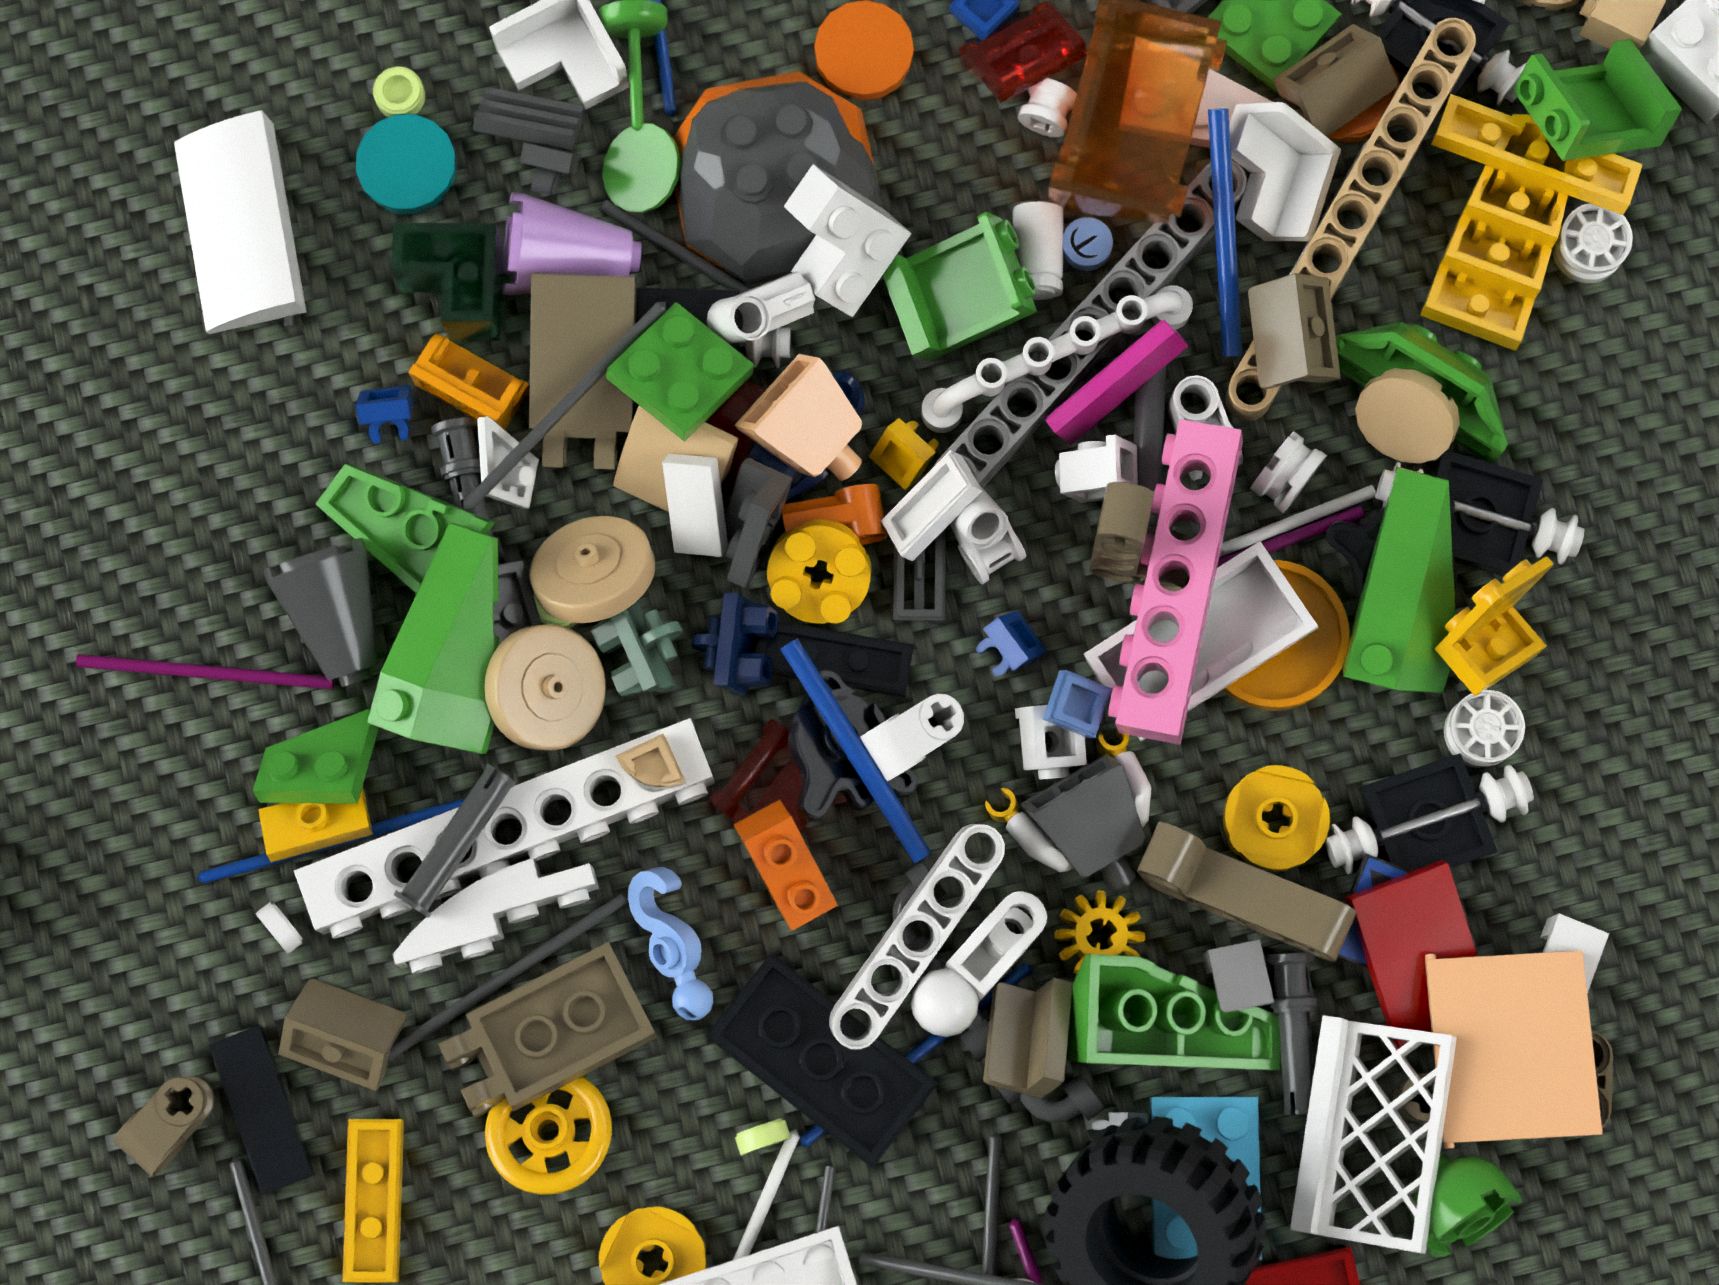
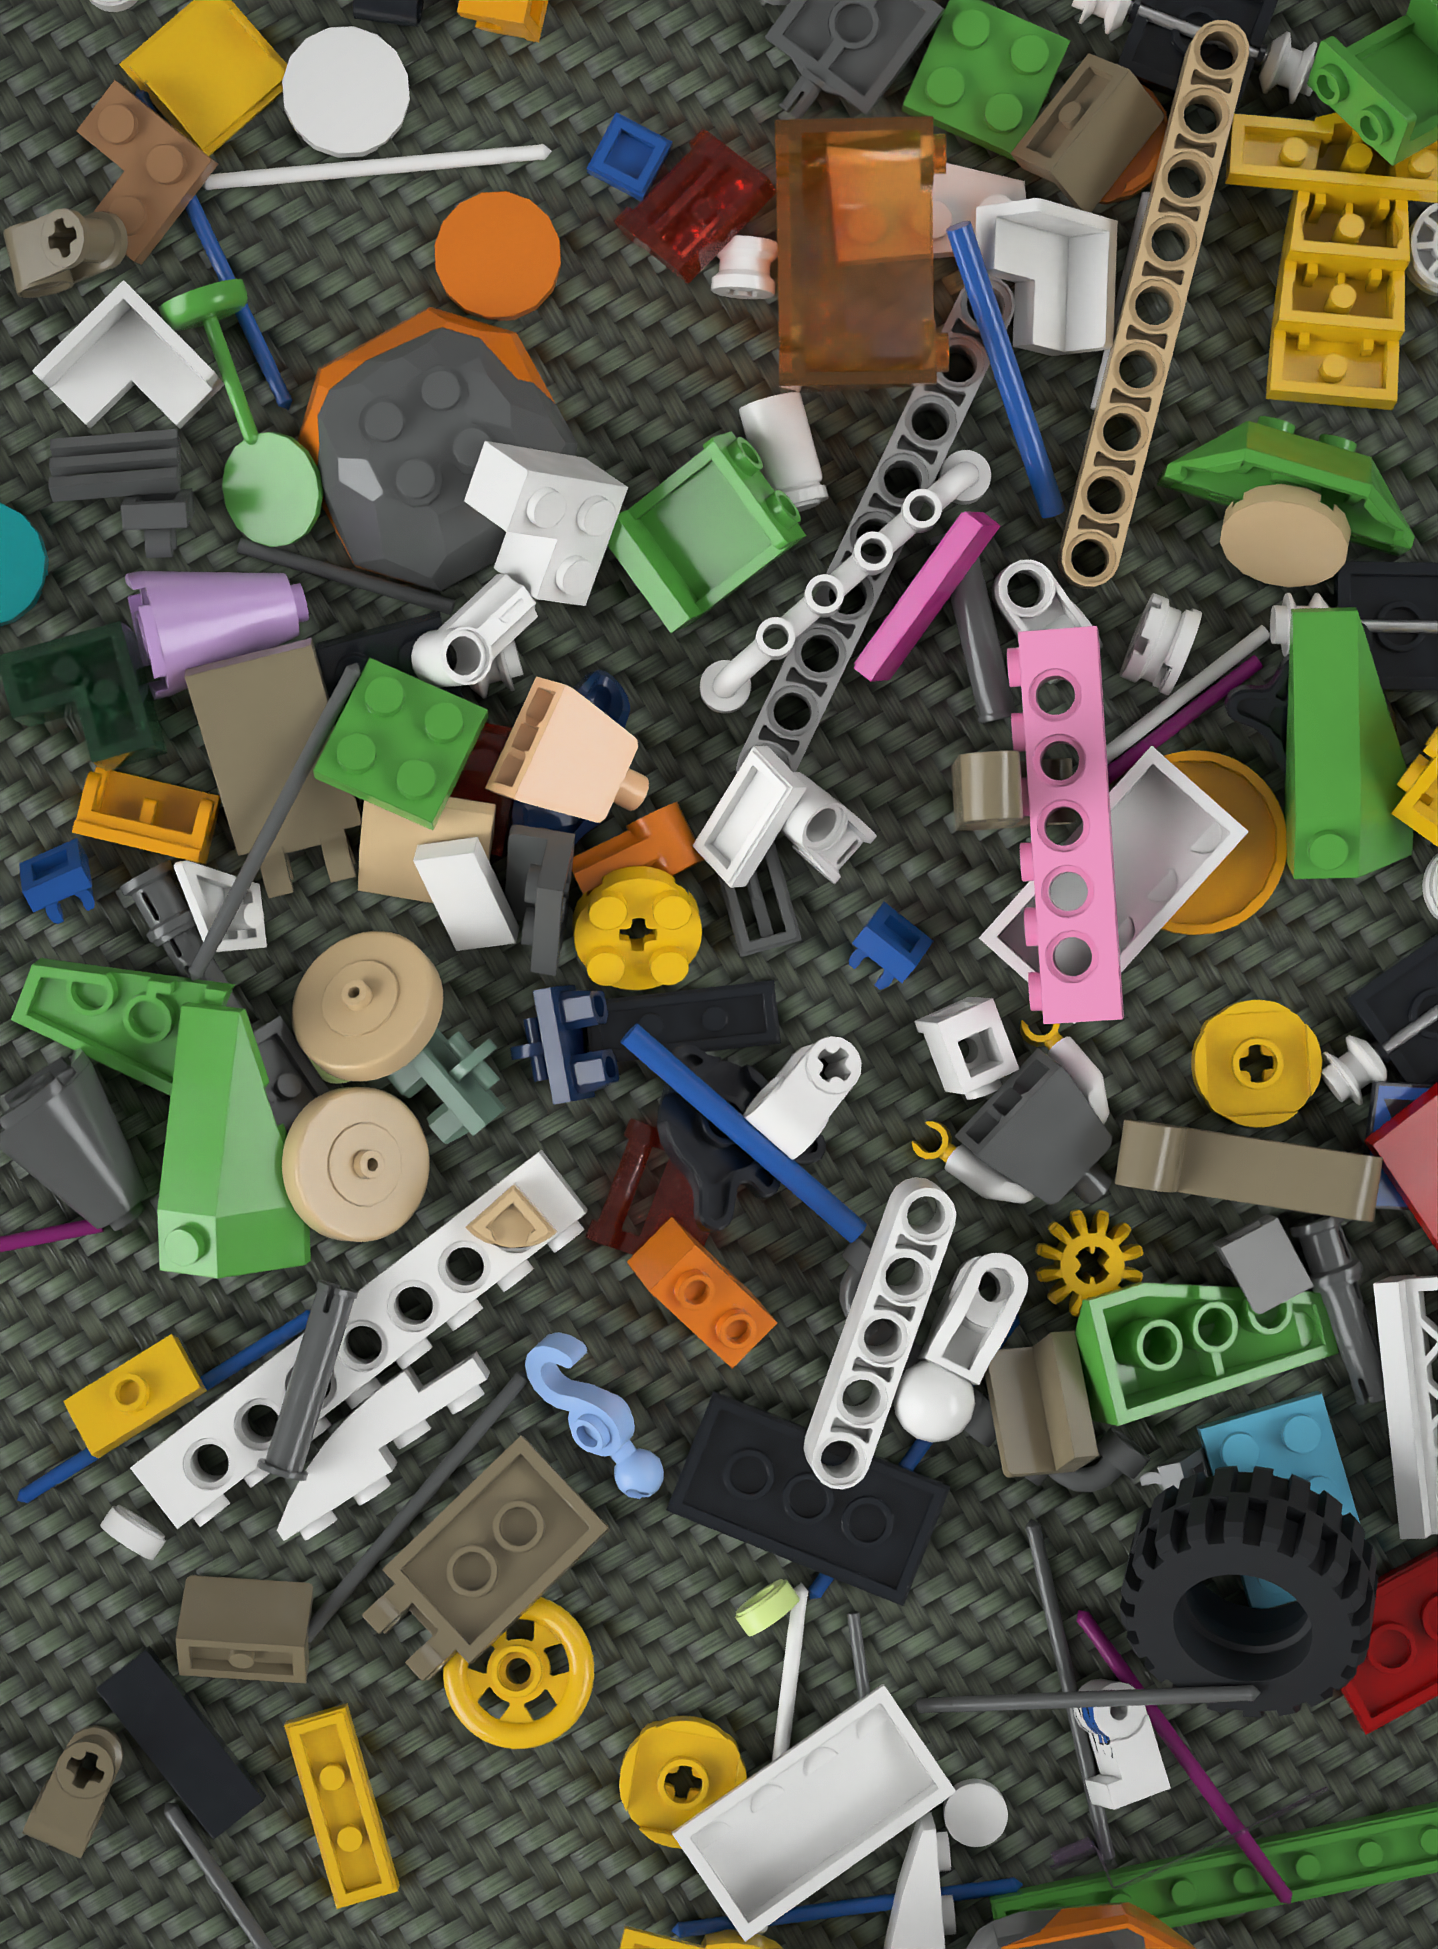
camera: 20 degrees left, 10 degrees up
(319, 764) = (117, 1329): bright green wing -> none
(903, 453) = (694, 752): yellow tile -> none
(1077, 704) = (989, 1004): medium blue tile -> none
(1087, 244) = (840, 424): light blue tile -> none
(1089, 469) = (934, 708): white brick -> none
(1294, 331) = (1124, 476): dark tan panel -> none

